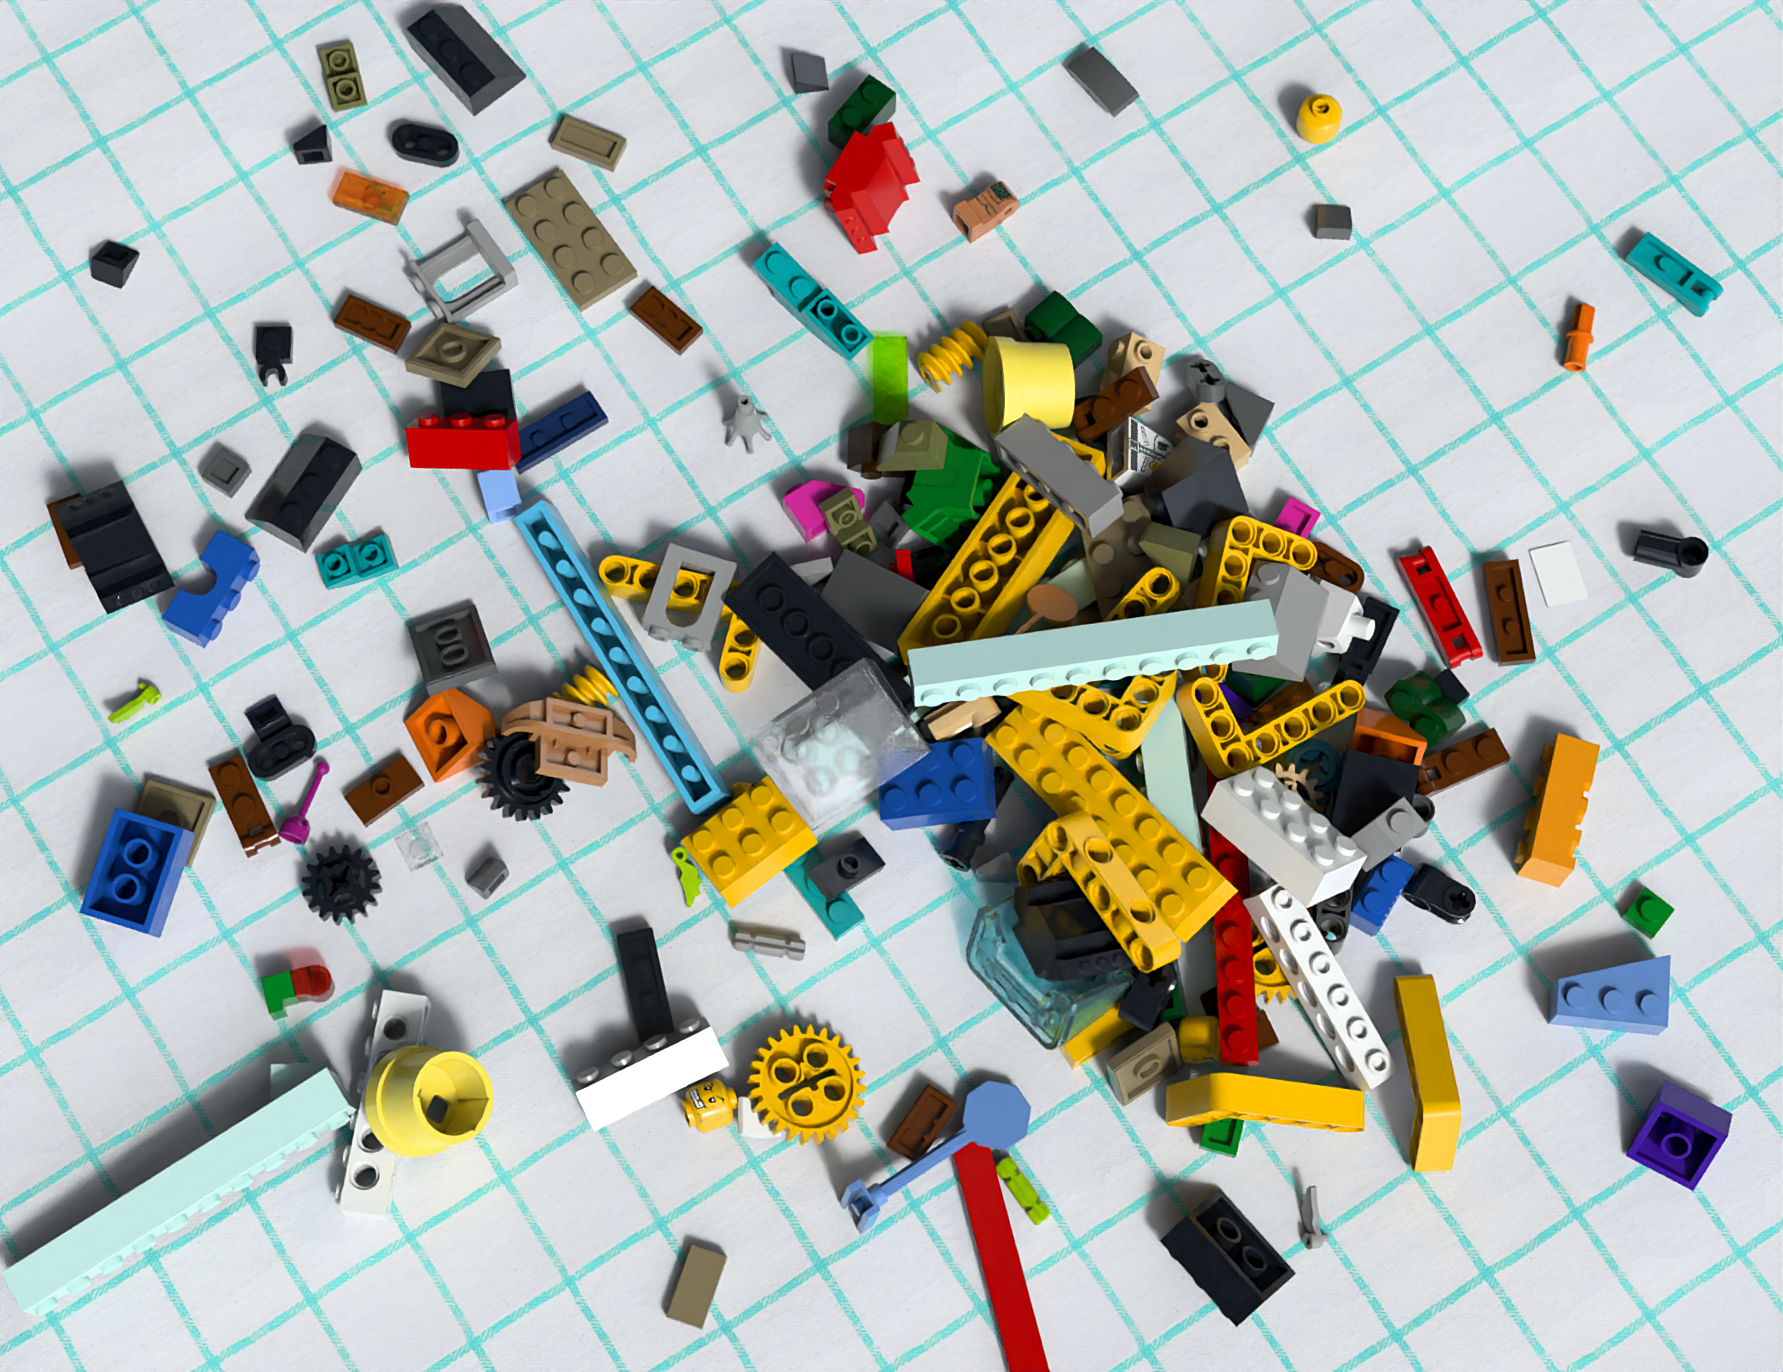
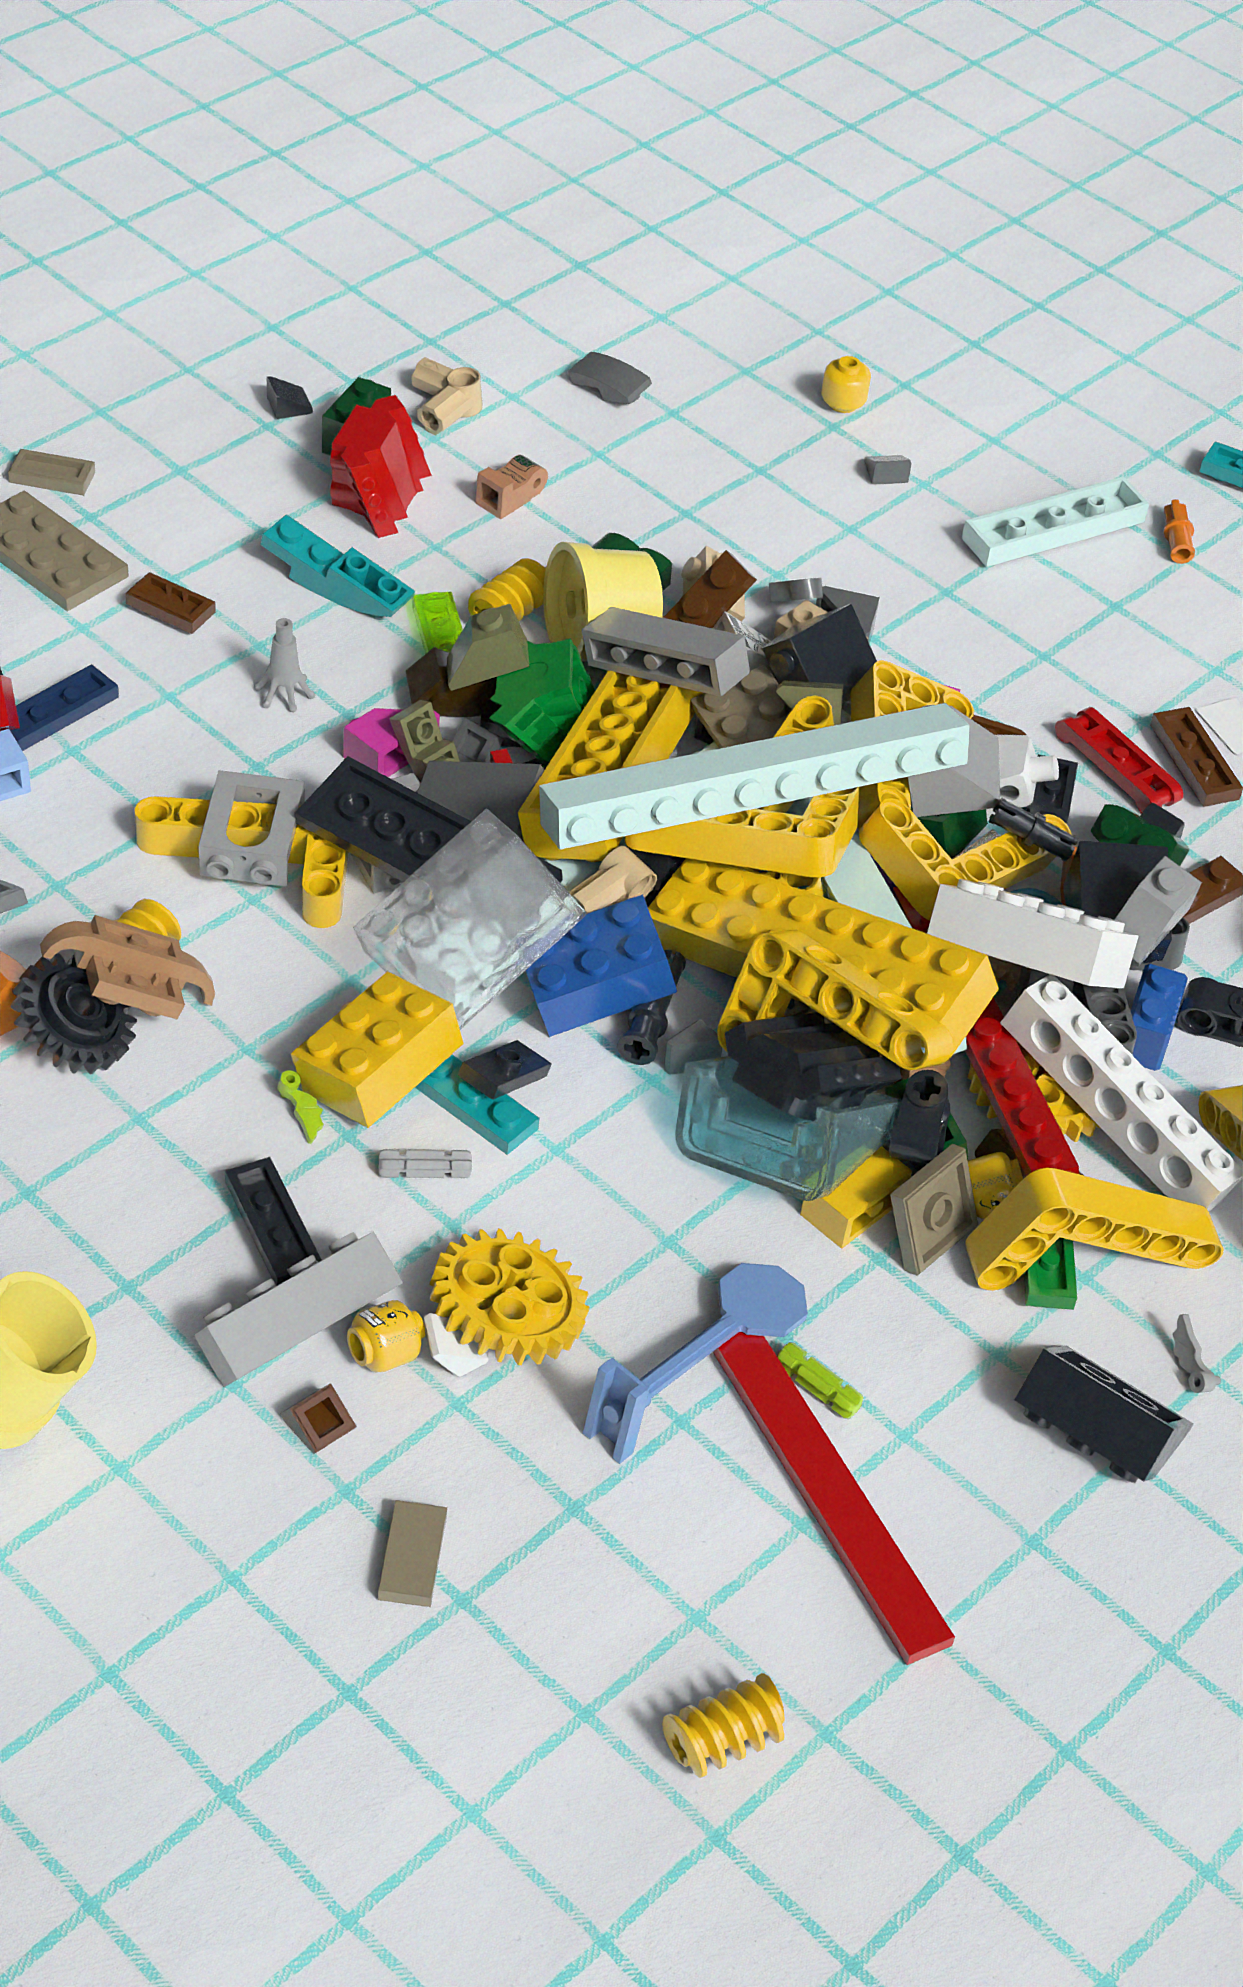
camera: 15 degrees left, 25 degrees down
(488, 877) = (46, 1138): dark grey slope -> none
(623, 659) = (199, 906): medium azure brick -> none
(650, 1161) = (319, 1418): none -> reddish brown slope
(922, 1124) = (669, 1321): reddish brown plate -> none
(950, 100) = (455, 394): none -> tan piece
(1325, 707) = (1033, 829): none -> black pin
(1467, 314) = (1054, 521): none -> light aqua piece

